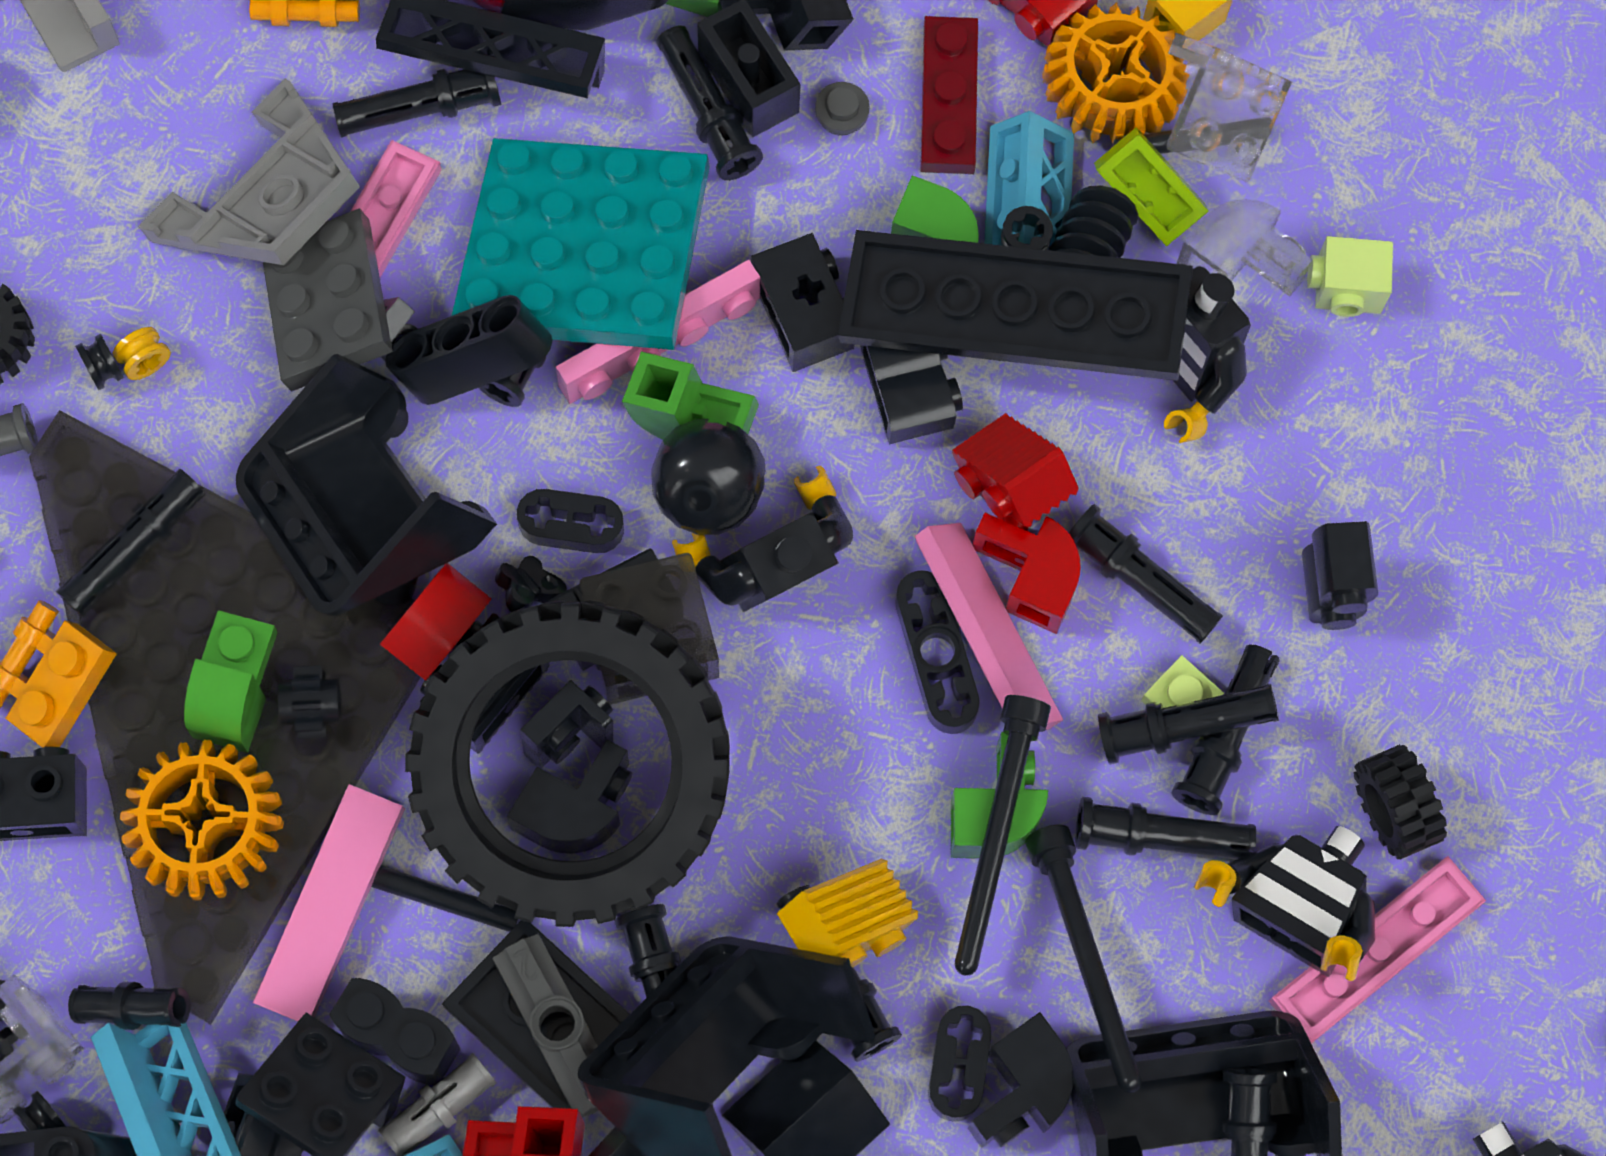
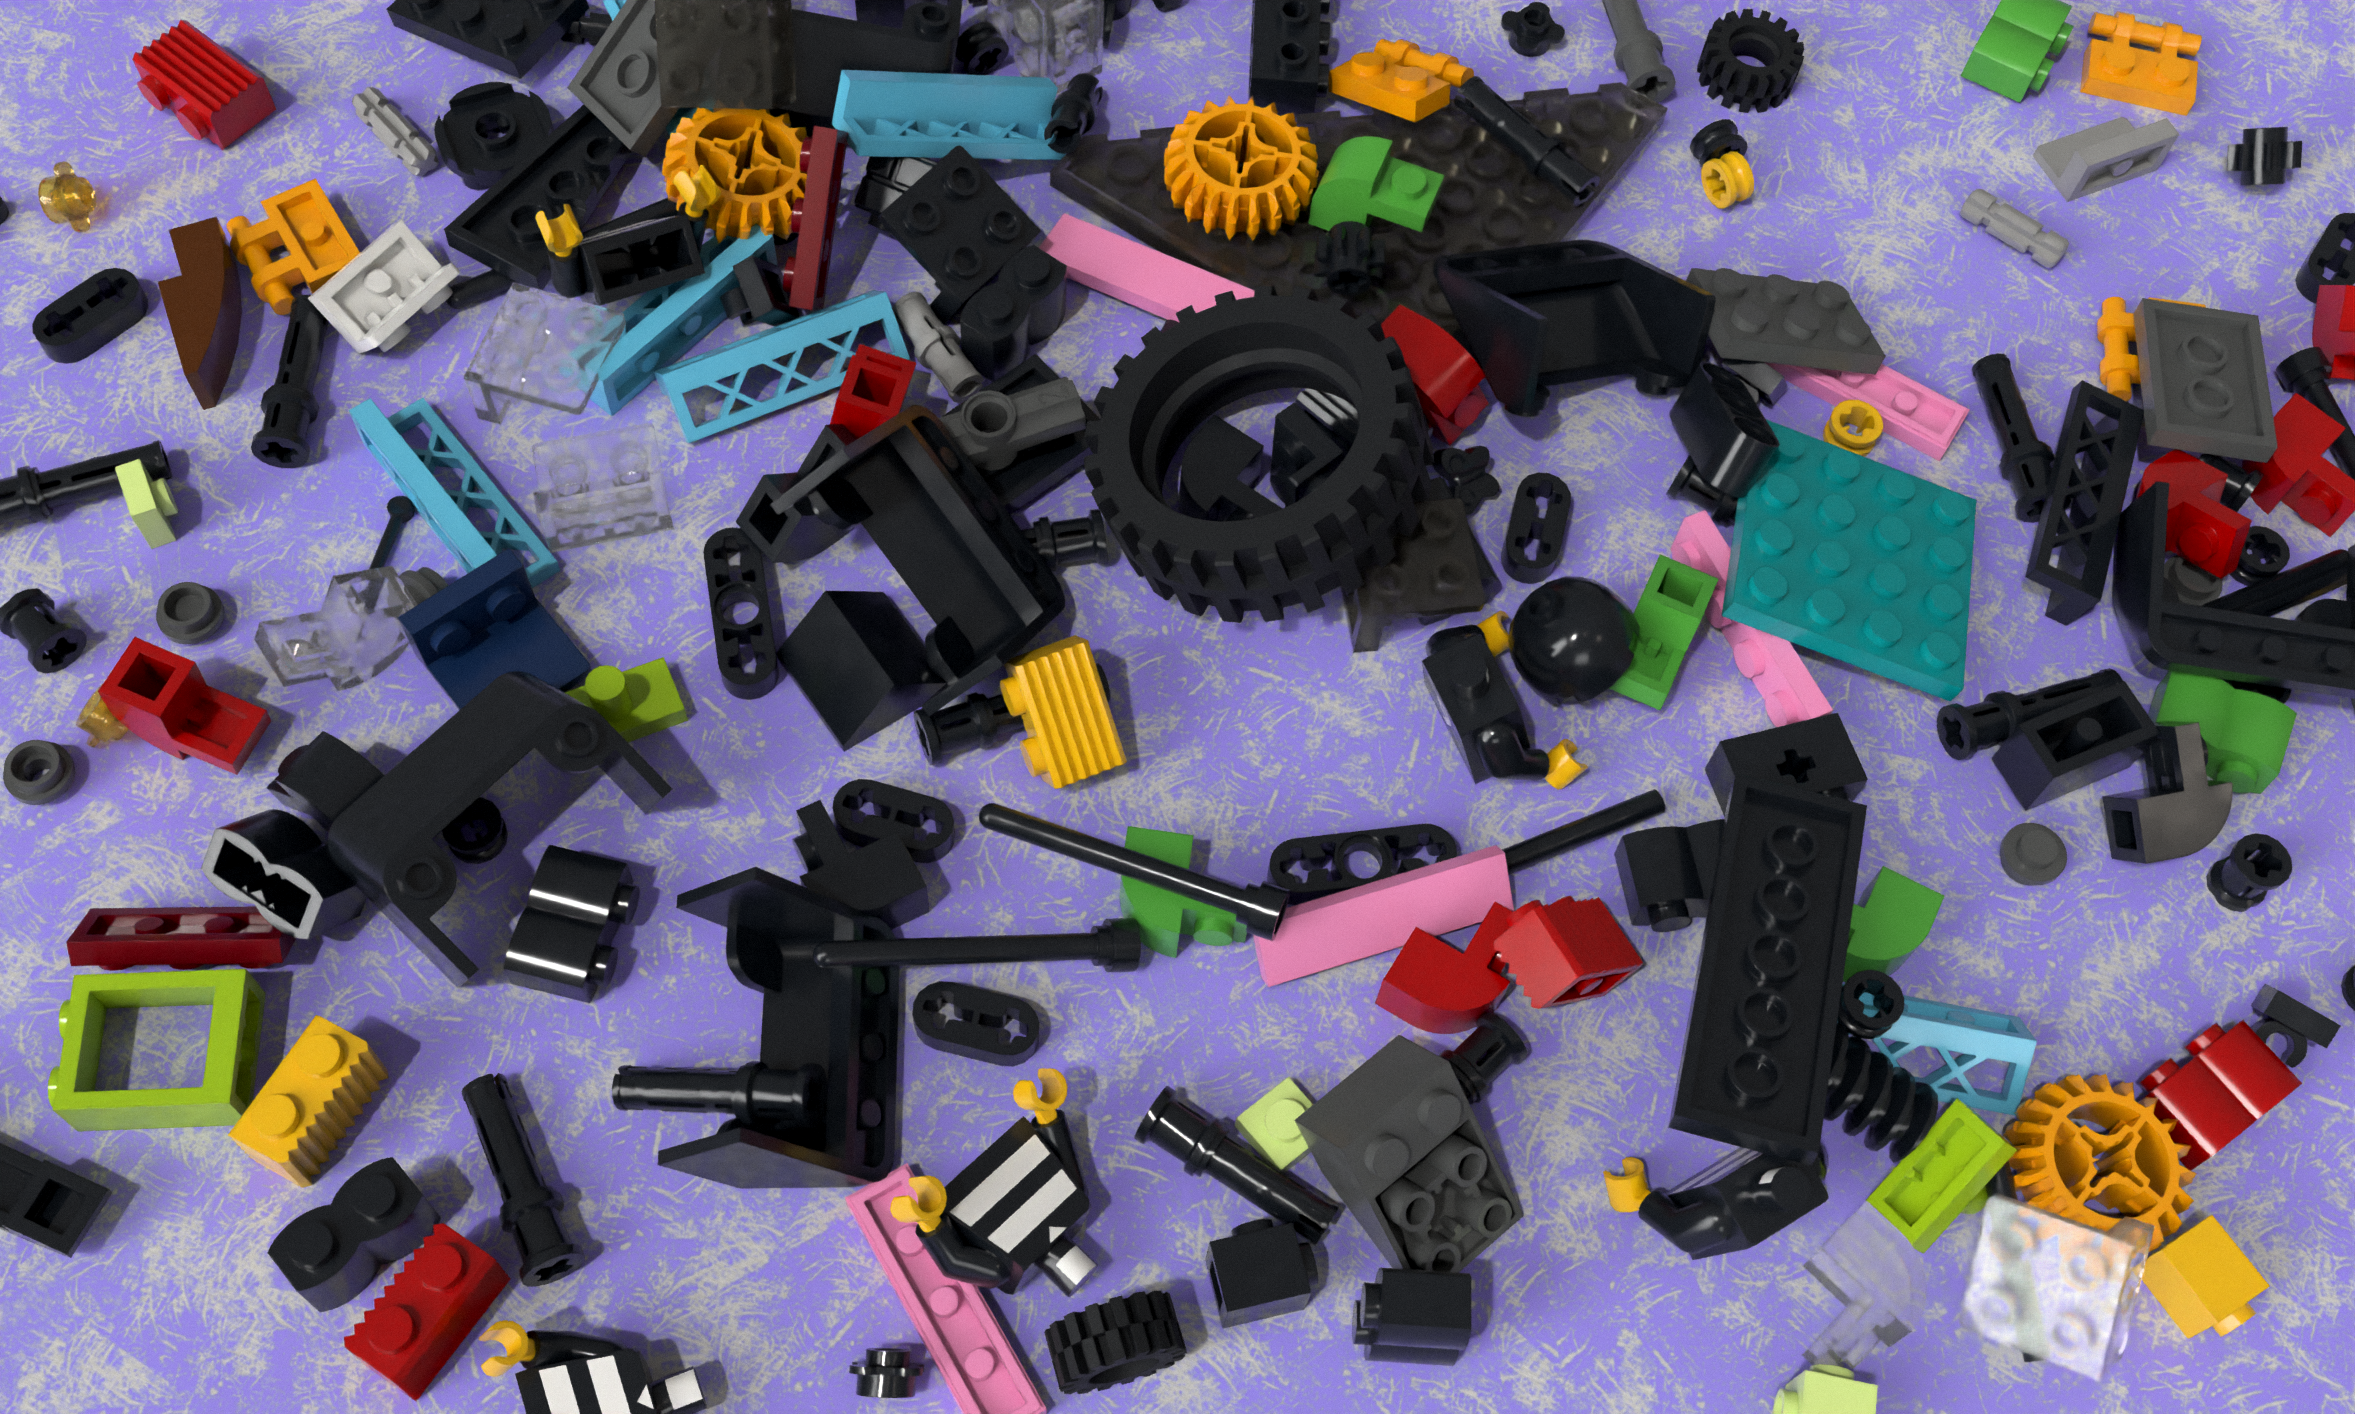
camera: 95 degrees right, 10 degrees down
(168, 92) = (2014, 228): none -> light grey axle
(274, 202) = (1903, 296): light grey wing -> none
(420, 225) = (1859, 414): none -> yellow bush
(876, 473) = (1583, 830): none -> black bar
(949, 95) = (2059, 978): dark red plate -> none
(1136, 829) = (1126, 1045): black pin -> none
(1152, 962) = (980, 1009): none -> black beam
(1161, 726) = (1244, 1079): black pin -> none
(1214, 586) = (1411, 1160): none -> dark grey slope
(1315, 700) = (1260, 1272): none -> black brick
(1448, 983) = (886, 1373): none -> black plate

